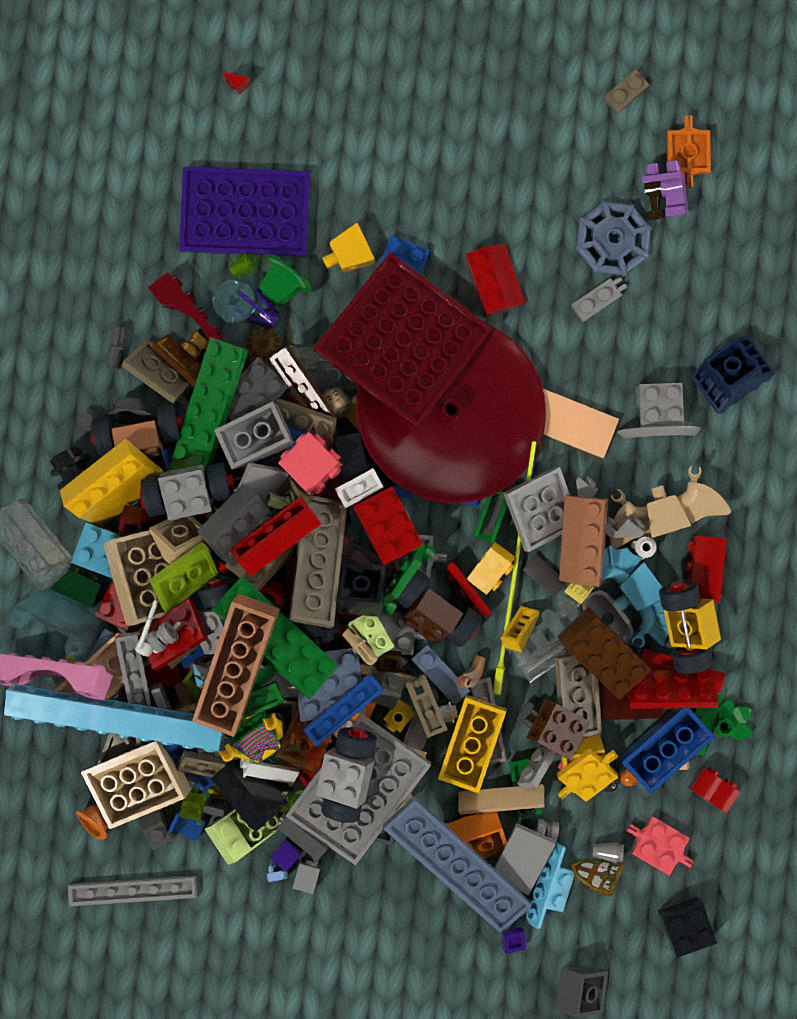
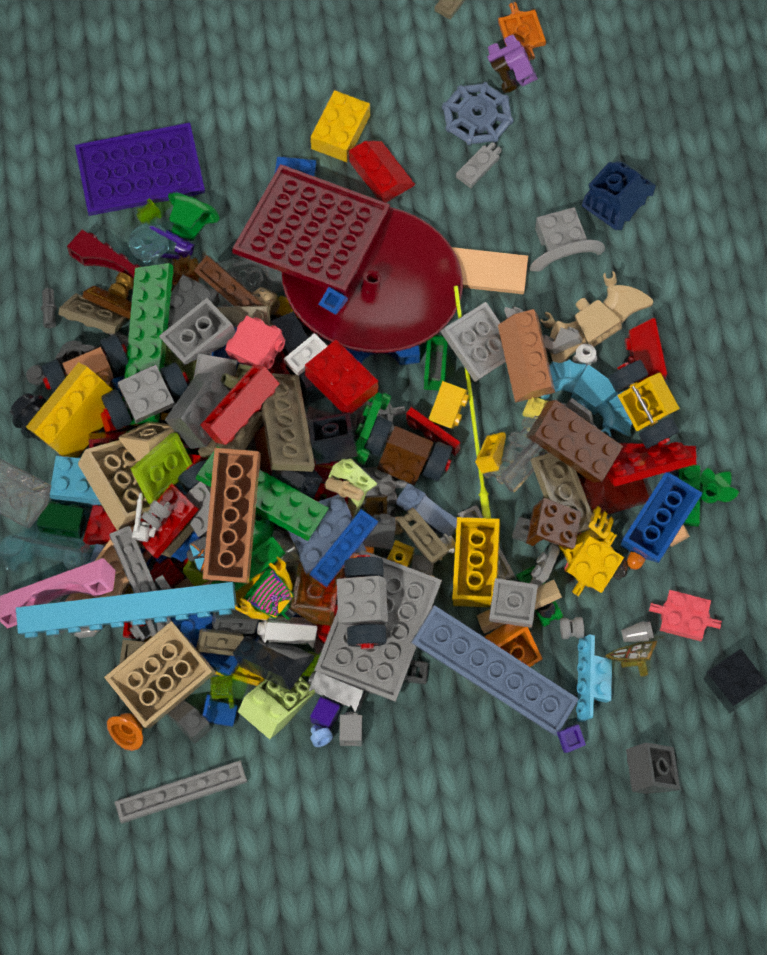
camera: 15 degrees left, 20 degrees down
(216, 805) = (245, 684): dark grey plate -> none
(237, 82) = (106, 68): red slope -> none
(349, 250) = (244, 177): yellow torso -> none
(402, 431) = (333, 301): none -> blue slope
(465, 217) = (340, 126): none -> yellow brick
(473, 674) = (459, 504): medium nougat arm -> none
(495, 804) = (513, 603): none -> light grey plate
(524, 857) = (558, 654): light grey tile -> none
(544, 575) = (500, 405): dark grey slope -> none
(608, 740) = (608, 523): none -> yellow tile
(713, 789) = (719, 549): red brick -> none

